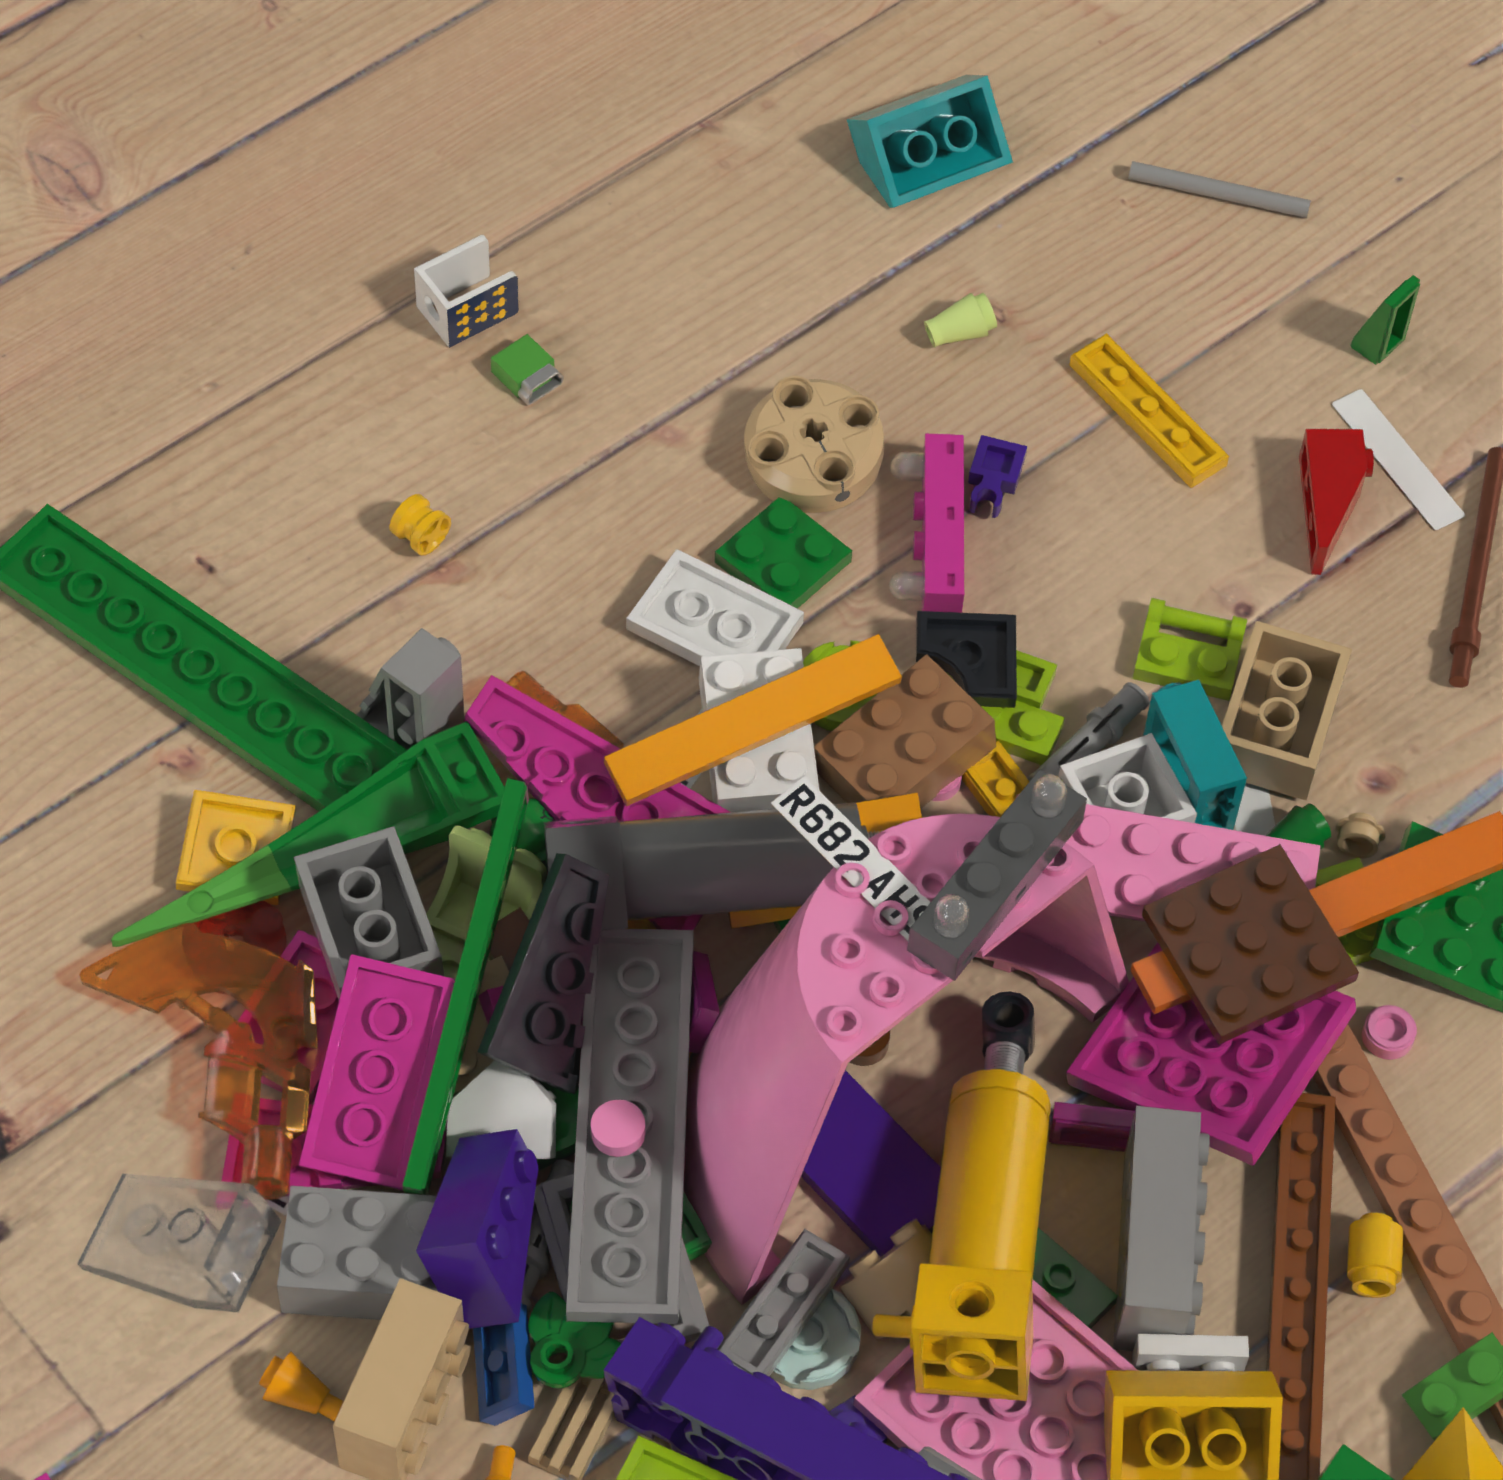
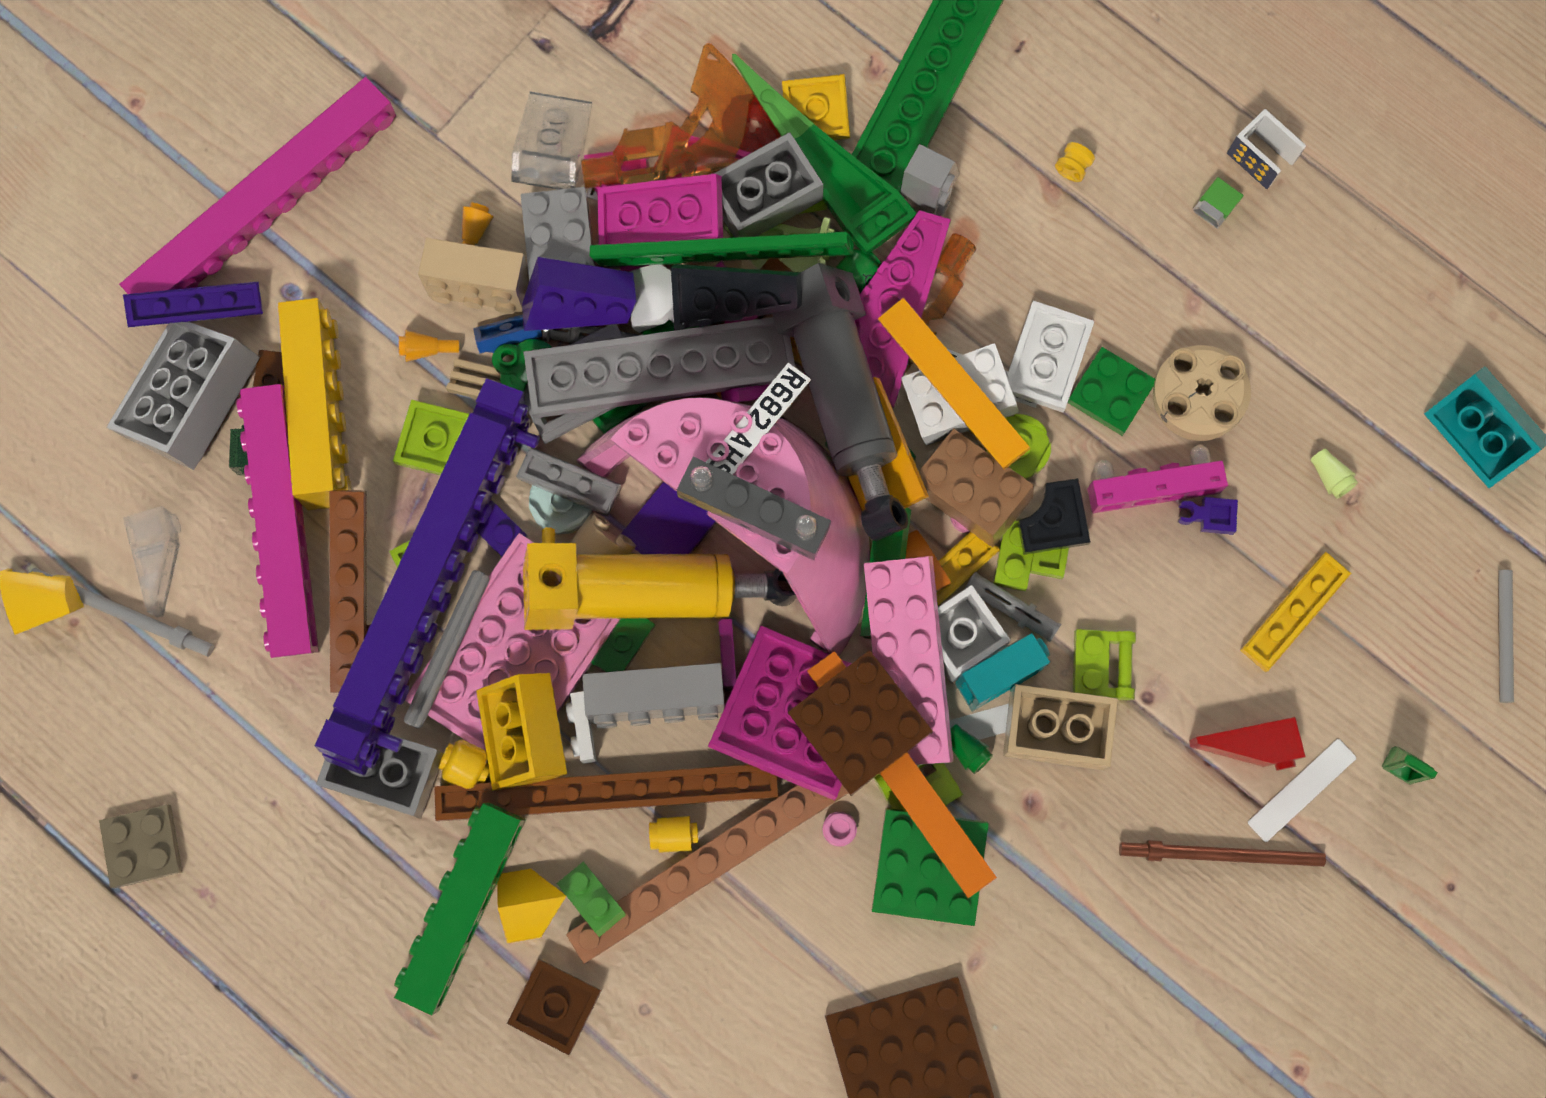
camera: 80 degrees right, 20 degrees up
(618, 1128) = (645, 356): bright pink tile -> none
(1359, 835) = (981, 793): tan plate -> none

